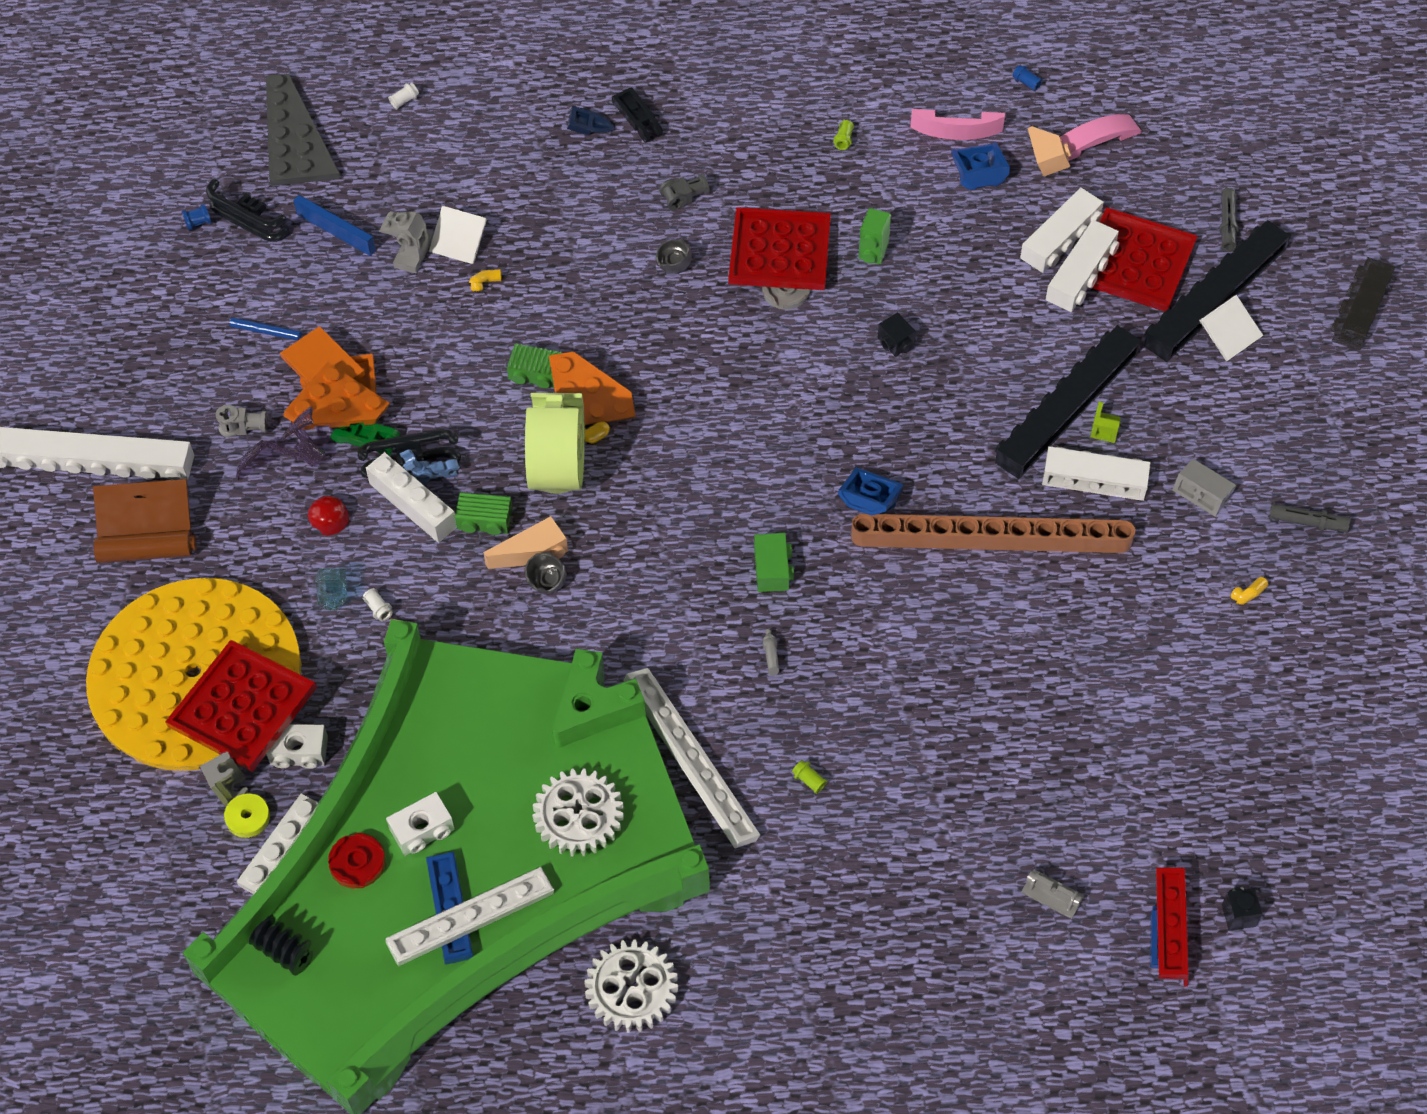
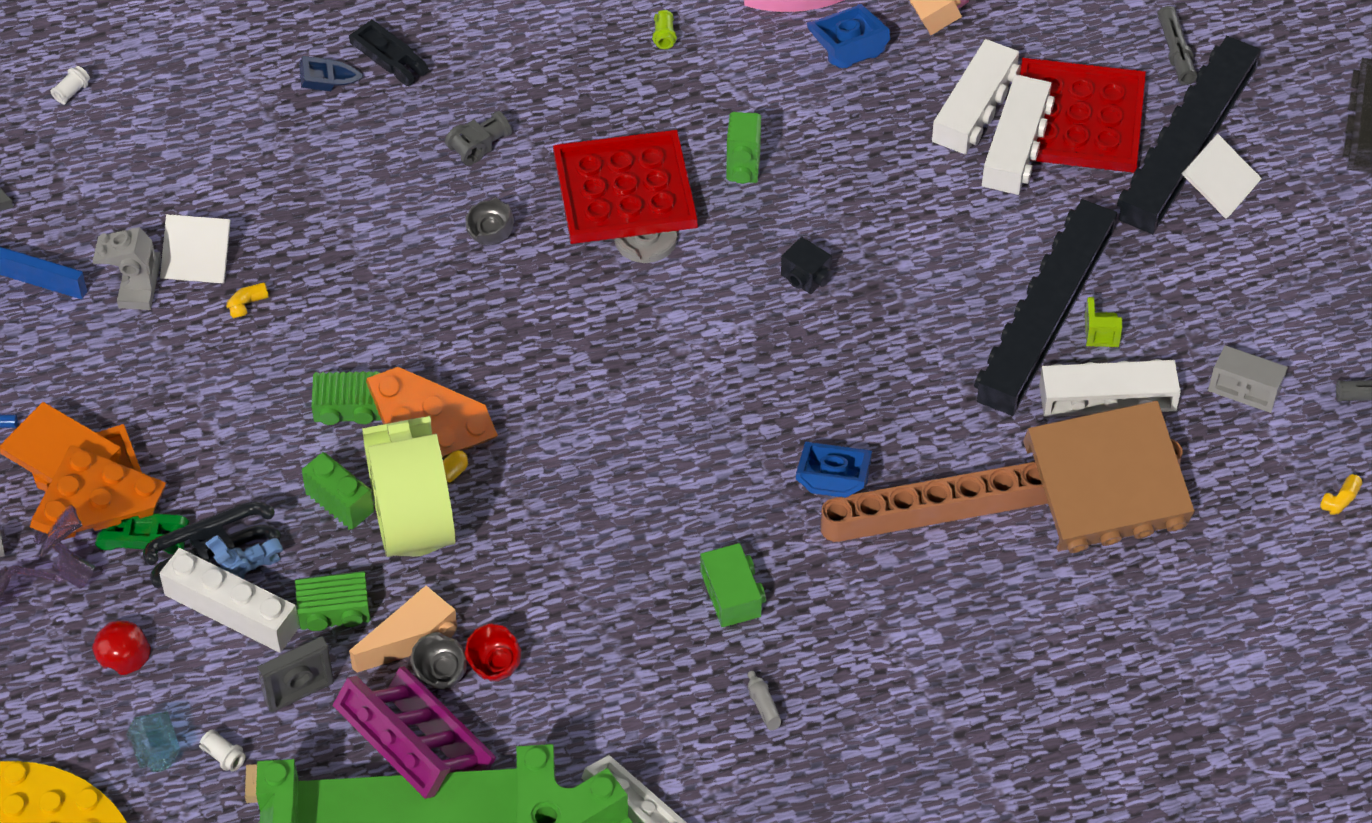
camera: 15 degrees left, 5 degrees down
(441, 561) = (296, 674): none -> dark grey tile
(496, 628) = (399, 744): none -> magenta fence
(507, 432) = (337, 490): none -> bright green brick
(585, 575) = (493, 652): none -> red hair
(1074, 540) = (1110, 476): none -> medium nougat panel

